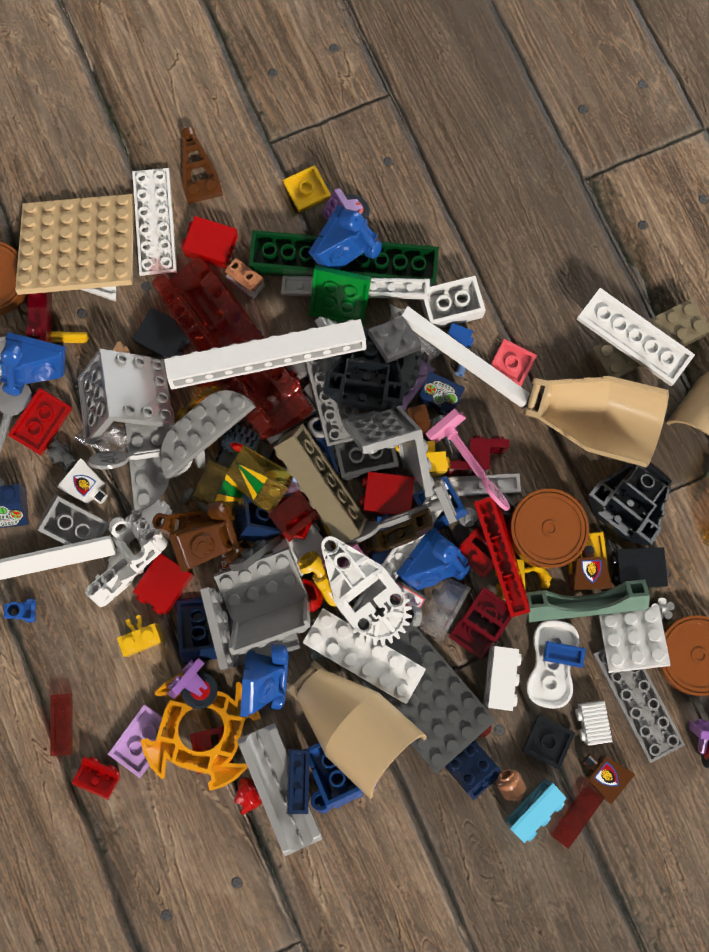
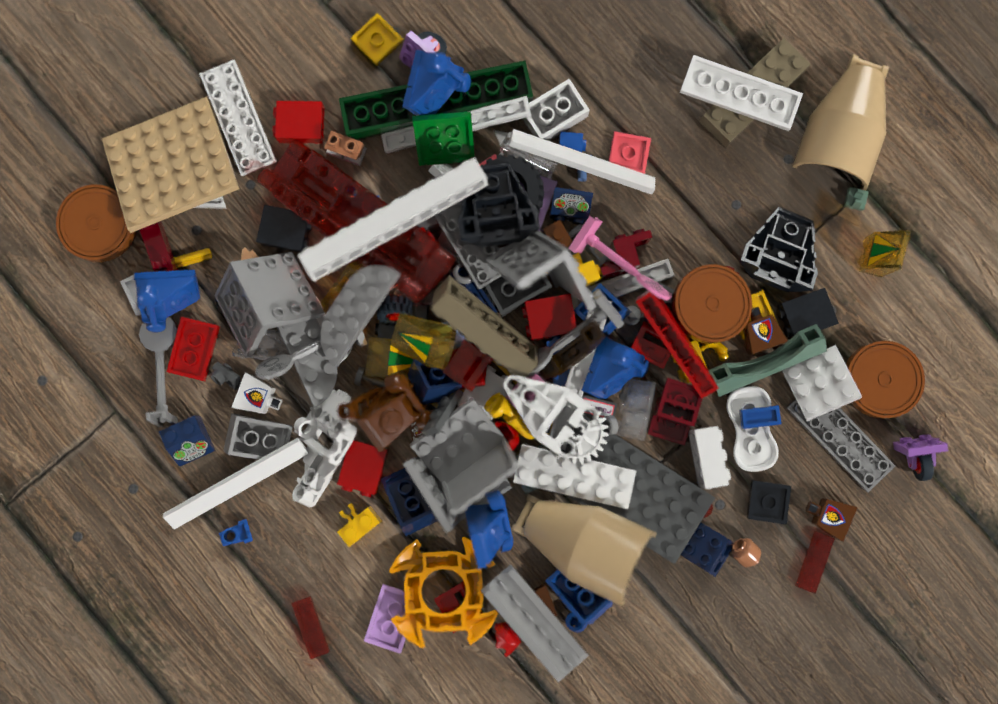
camera: 15 degrees left, 5 degrees up
(96, 777) = (360, 665): red bracket -> none
(196, 687) = (427, 554): plate -> none
(204, 188) = (274, 70): reddish brown plate -> none
(298, 781) = (550, 611): dark blue tile -> none
(394, 339) = (512, 166): flat silver plate -> none
(535, 810) = (775, 568): medium azure slope -> none
(593, 722) = (806, 471): white brick -> none
(603, 415) = (732, 179): tan windscreen -> none
(664, 607) = (840, 344): white plant -> none

